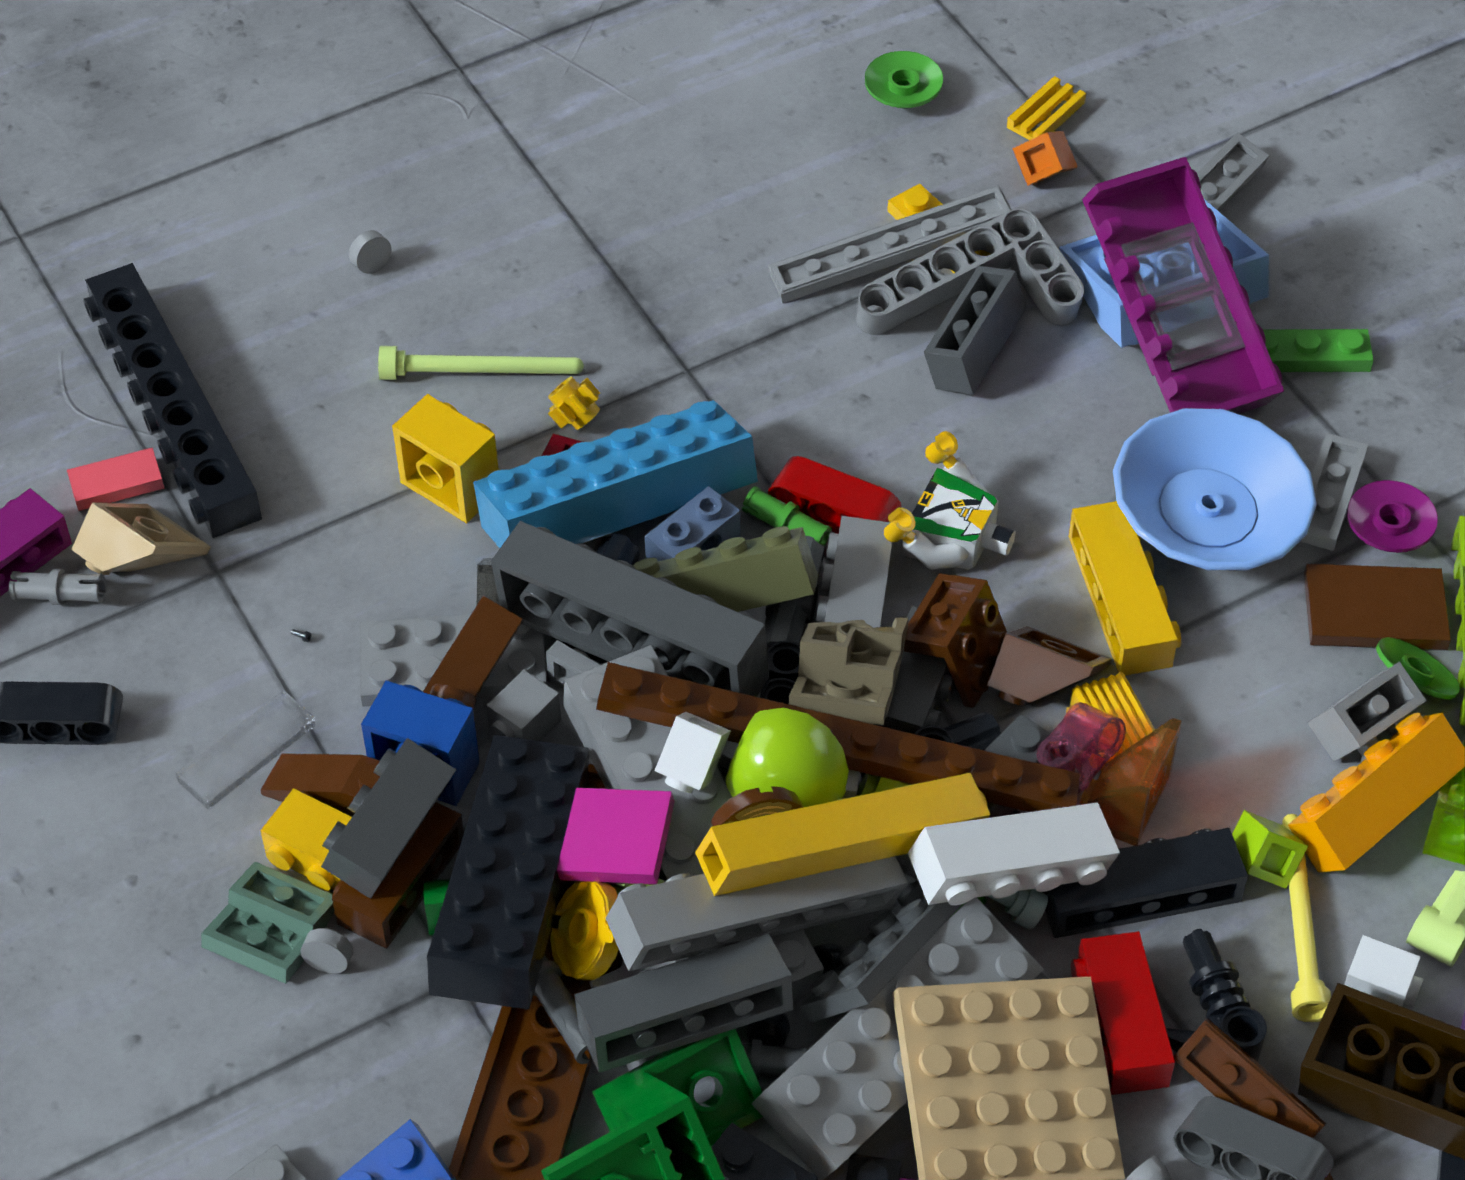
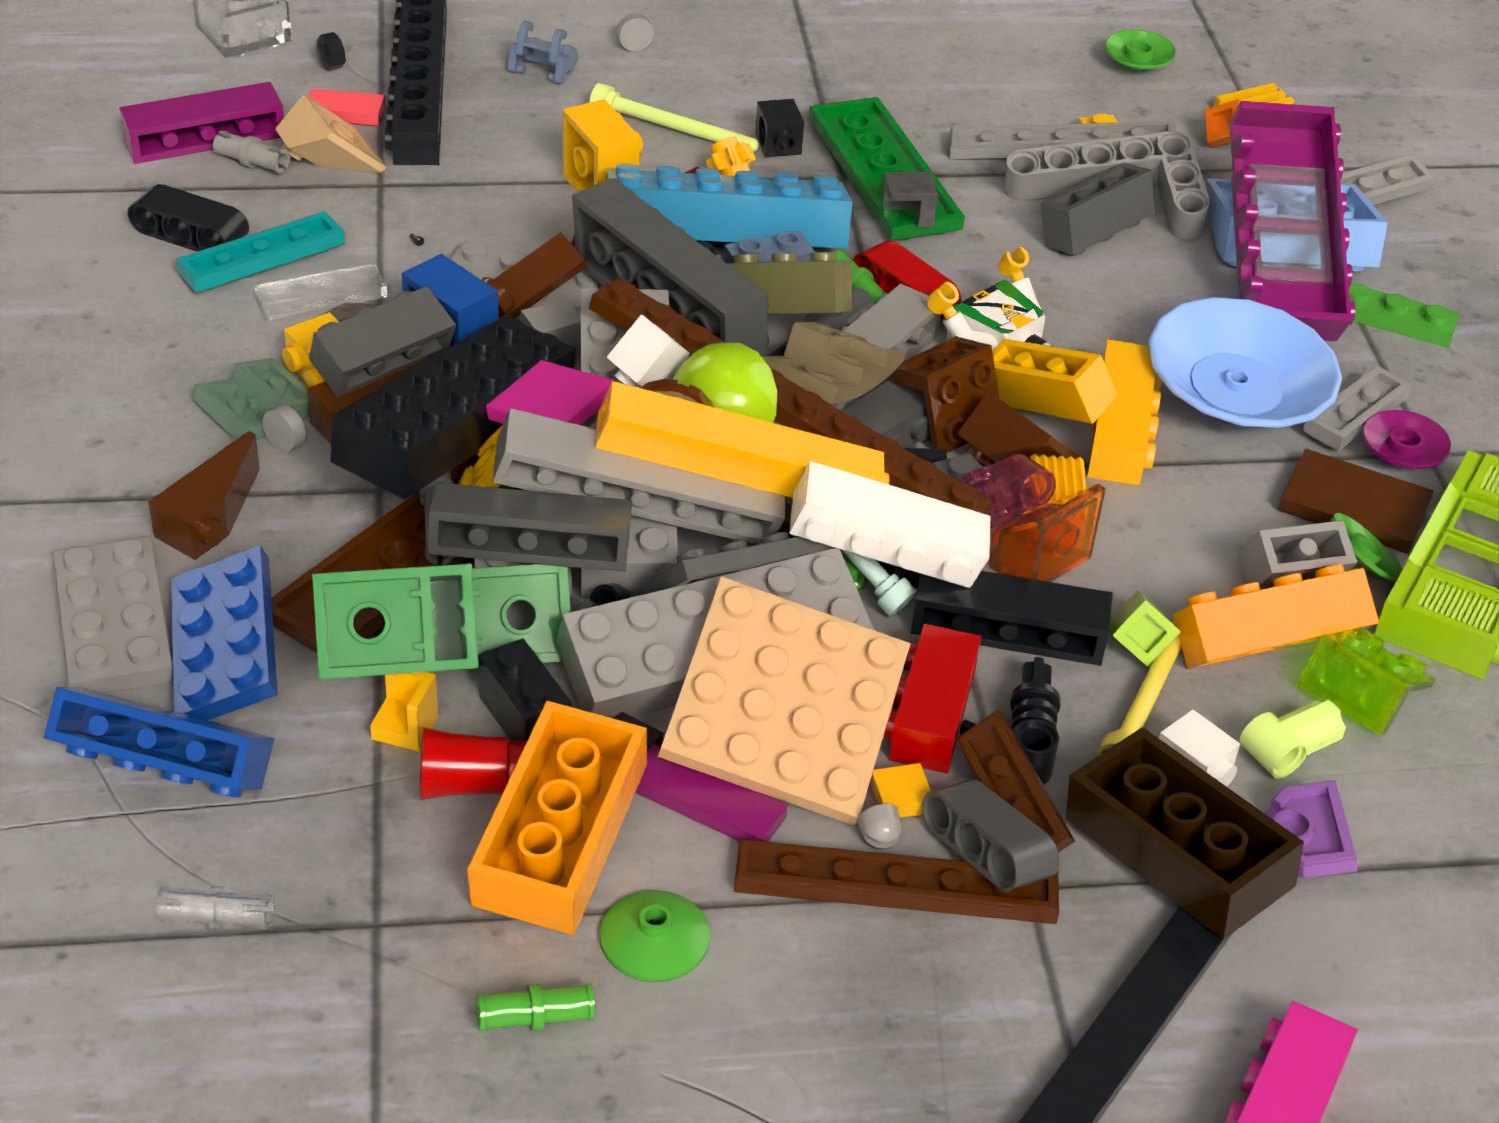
camera: 20 degrees right, 10 degrees down
(56, 407) = (330, 51): none -> black tile
(154, 724) = (260, 251): none -> teal plate
(290, 317) = (544, 52): none -> sand blue piece
(306, 1090) = (207, 501): none -> reddish brown slope
(597, 335) = (779, 127): none -> black brick
(731, 348) = (868, 145): none -> green plate
(794, 387) = (913, 192): none -> flat silver panel
(1053, 590) = (1053, 380): none -> yellow brick
(1144, 1128) = (902, 787): none -> yellow tile

